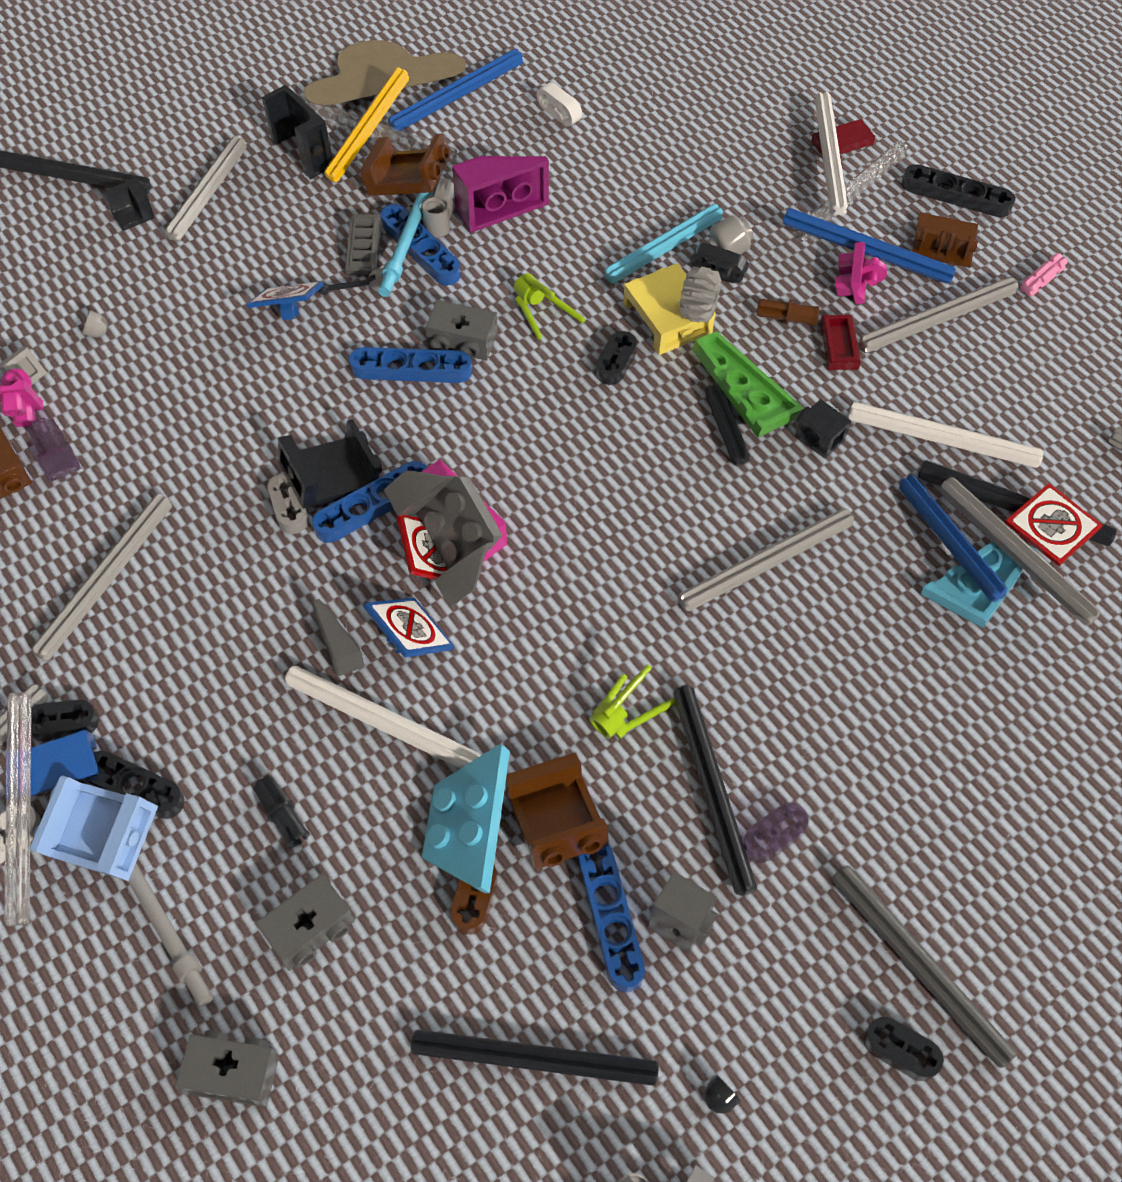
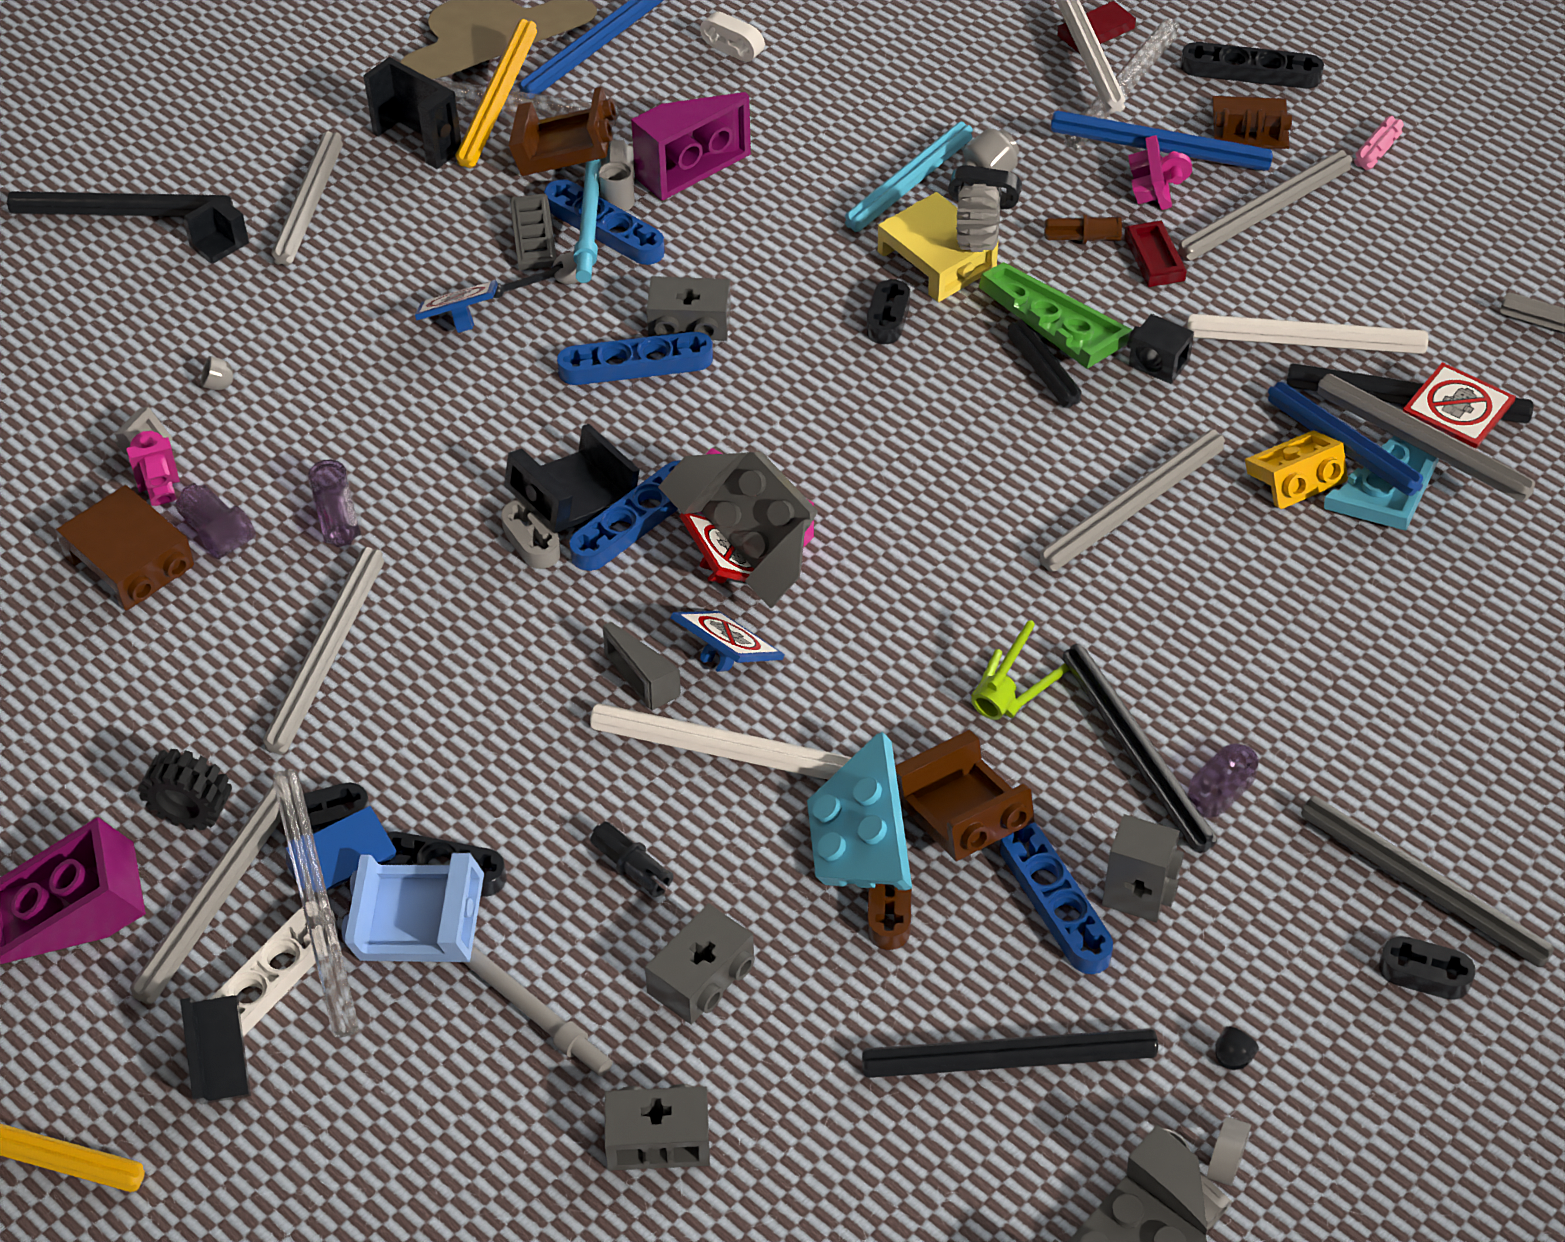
camera: 10 degrees left, 10 degrees down
(145, 451) = (333, 502): none -> clear purple piece
(533, 292) = (763, 252): lime plant -> none
(909, 555) = (1300, 467): none -> yellow bracket

